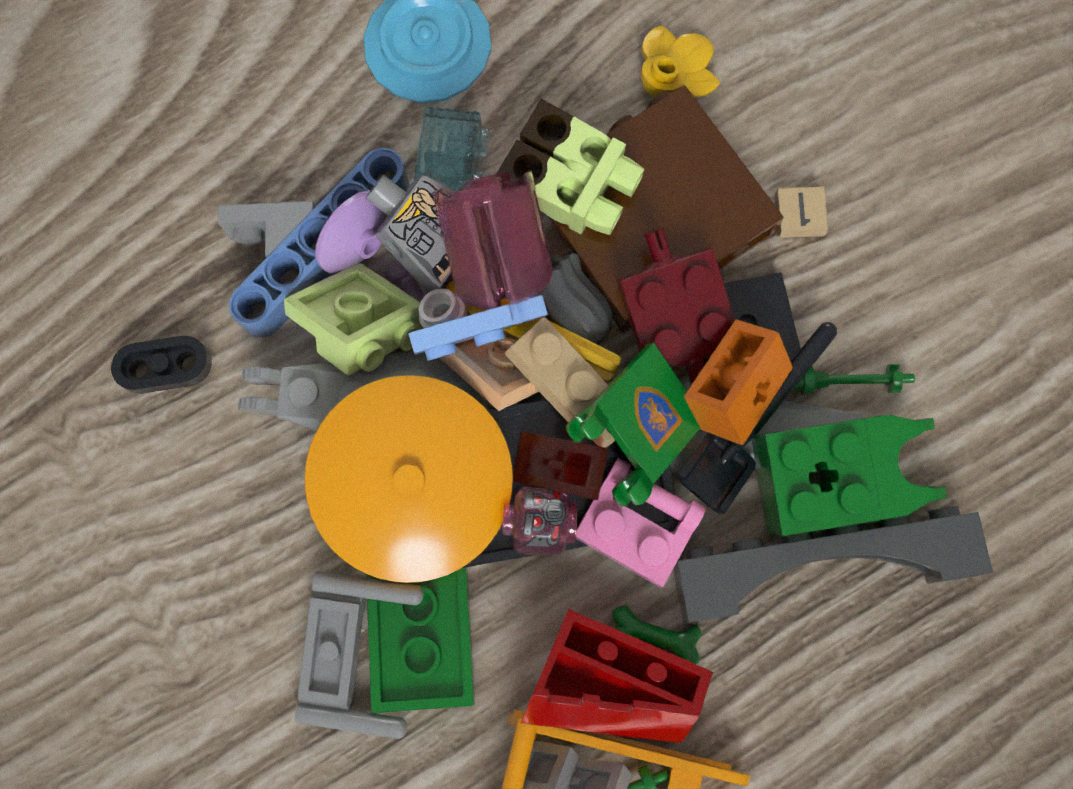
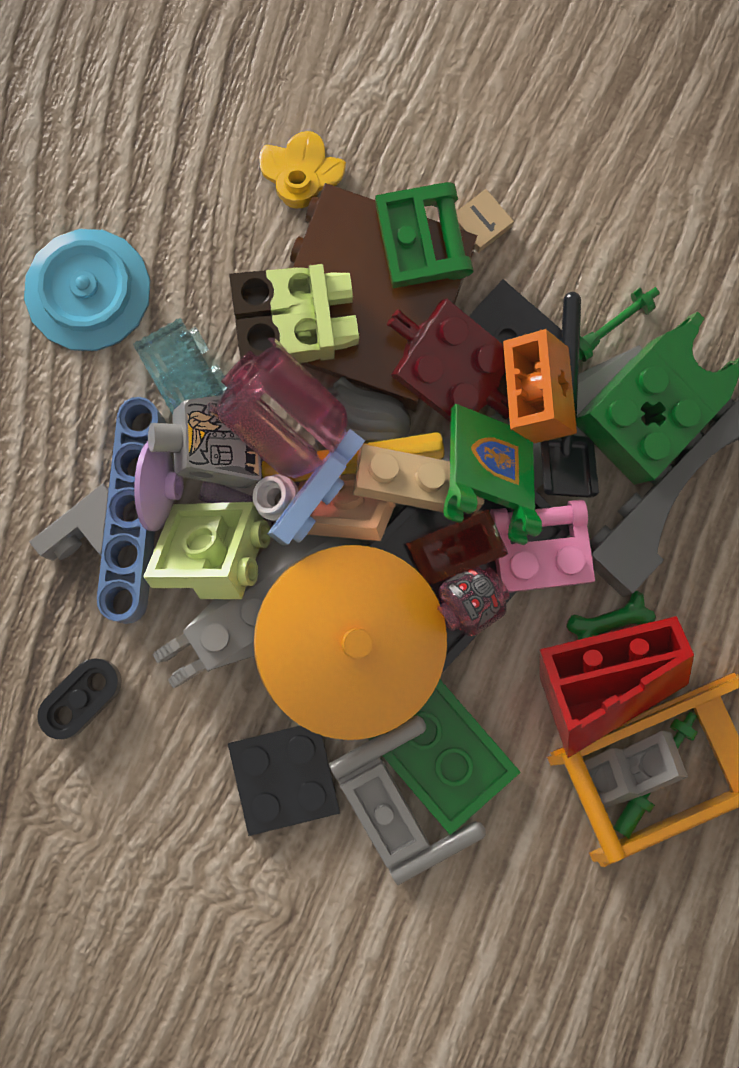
camera: 40 degrees left, 5 degrees up
(271, 558) = (283, 779): none -> black plate
(719, 176) = (409, 239): none -> green plate

